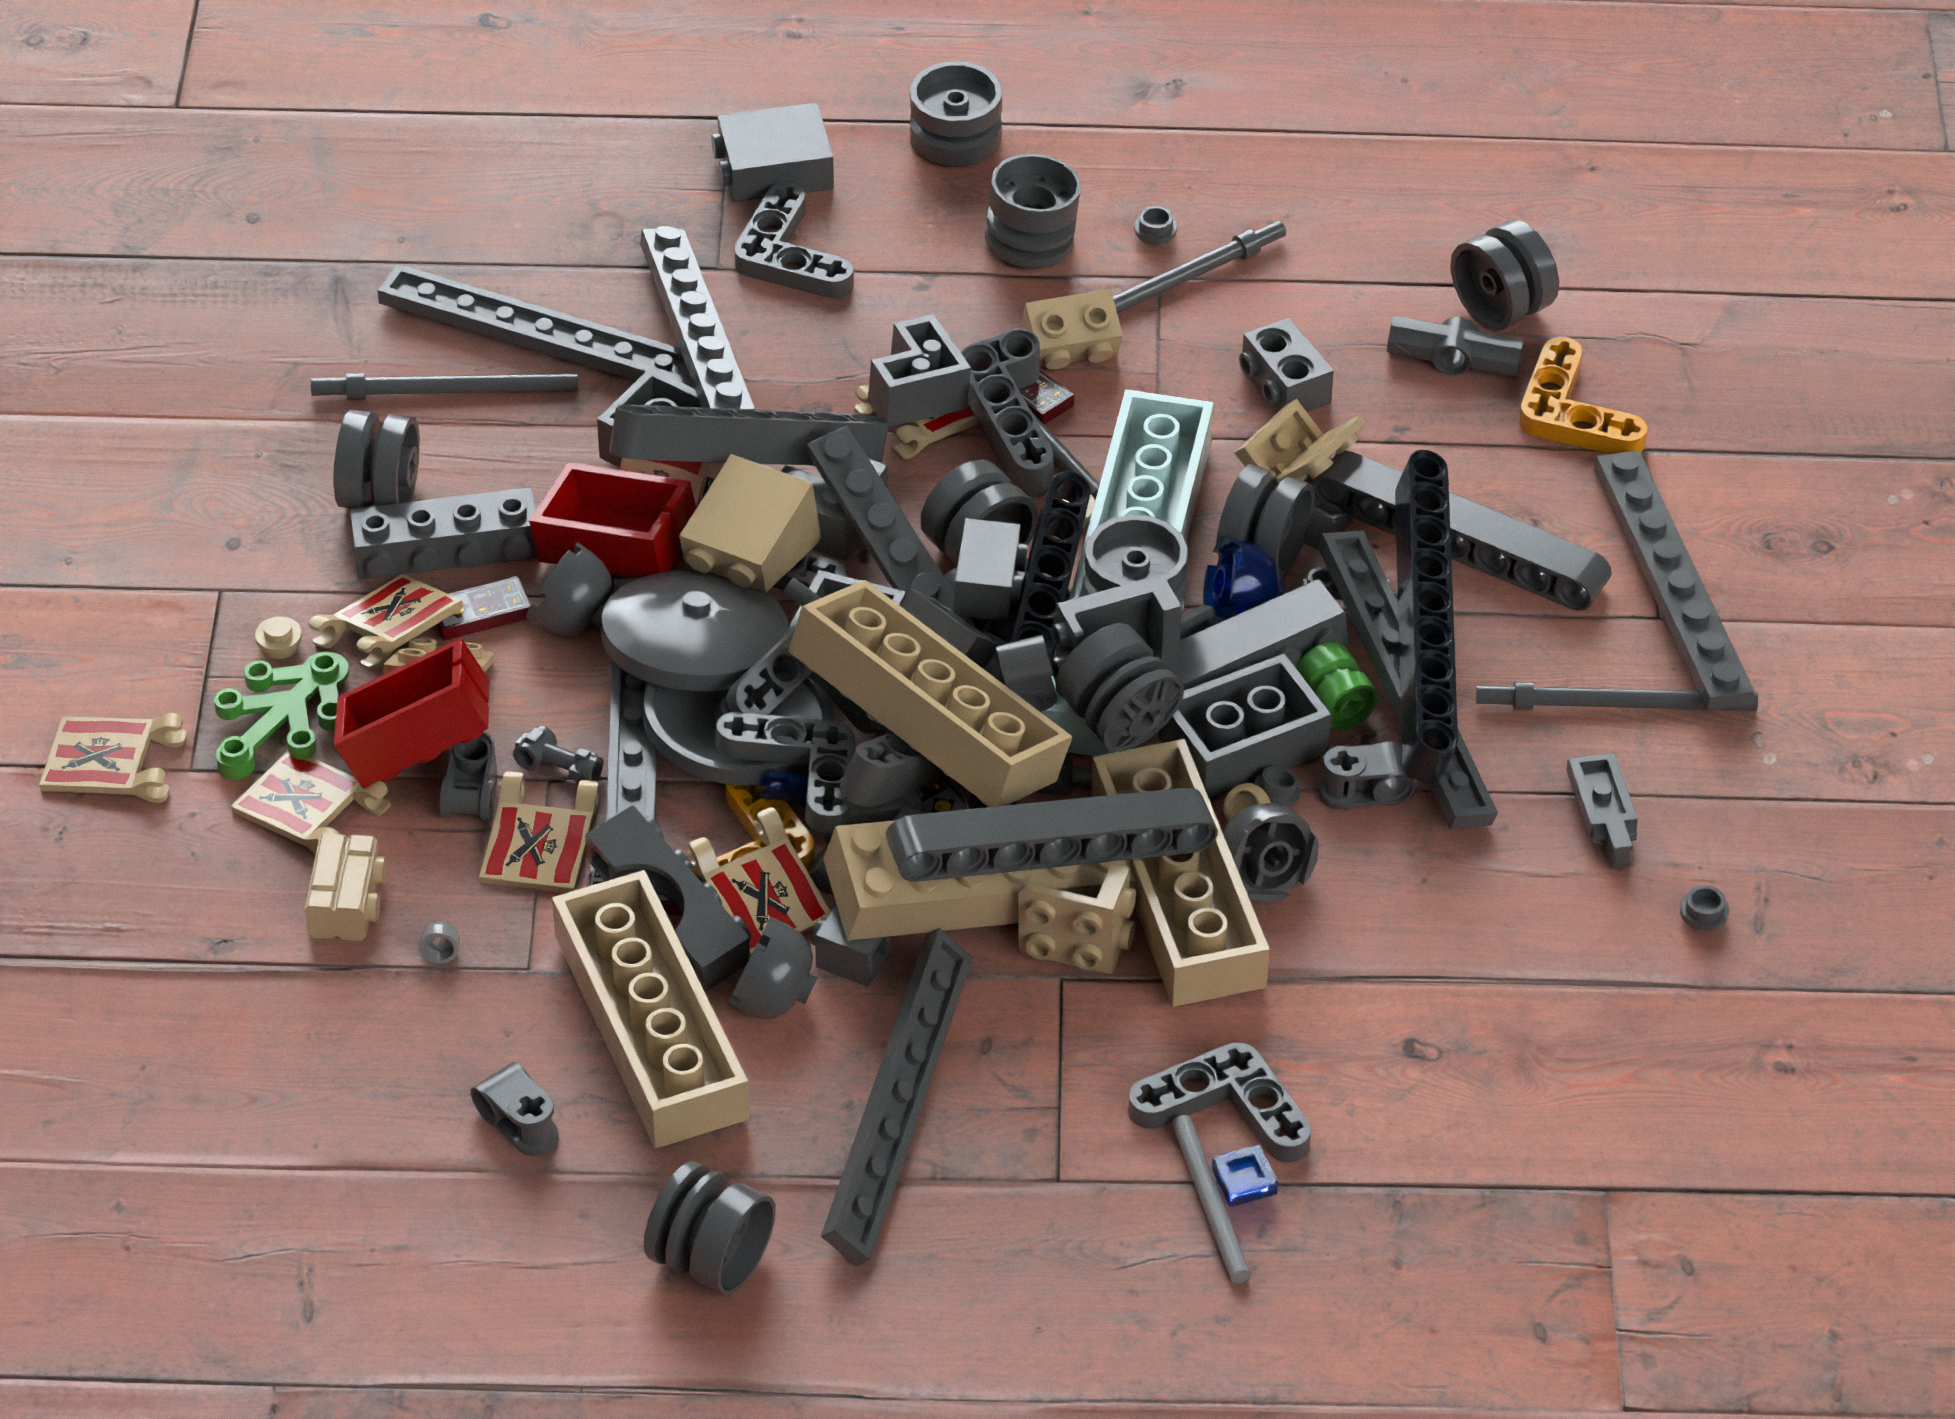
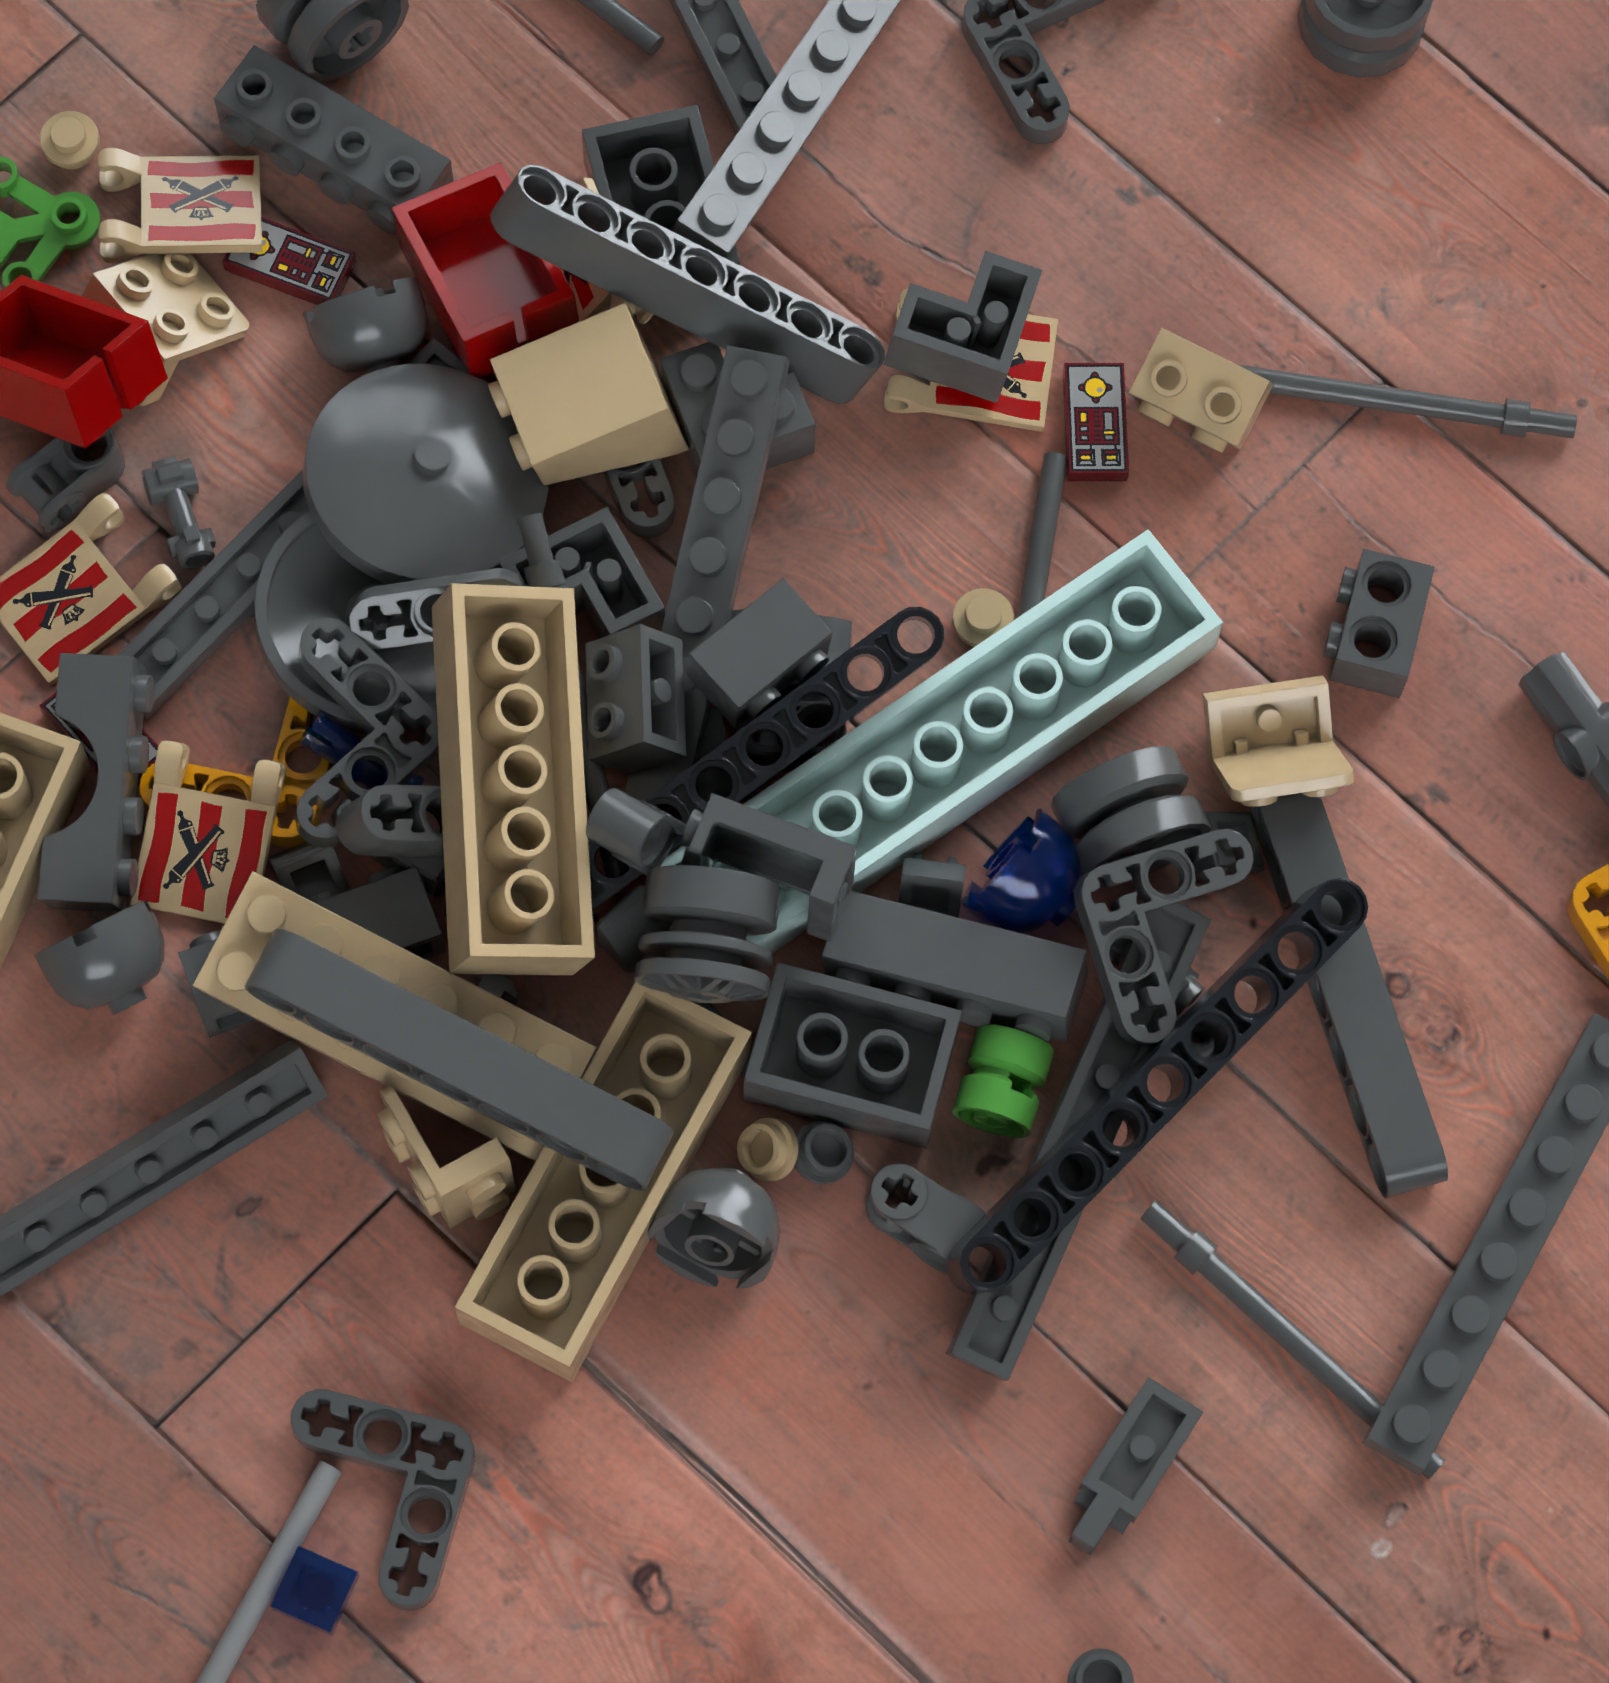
camera: 40 degrees right, 25 degrees up
(974, 492) = (846, 561): dark grey wheel -> none
(997, 373) = (1025, 455): dark grey beam -> none
(1032, 210) = (1309, 201): dark grey wheel -> none
(1134, 550) = (912, 788): dark grey wheel -> none
(1155, 225) = (1442, 316): dark grey plate -> none
(1325, 547) = (1130, 922): none -> dark grey beam

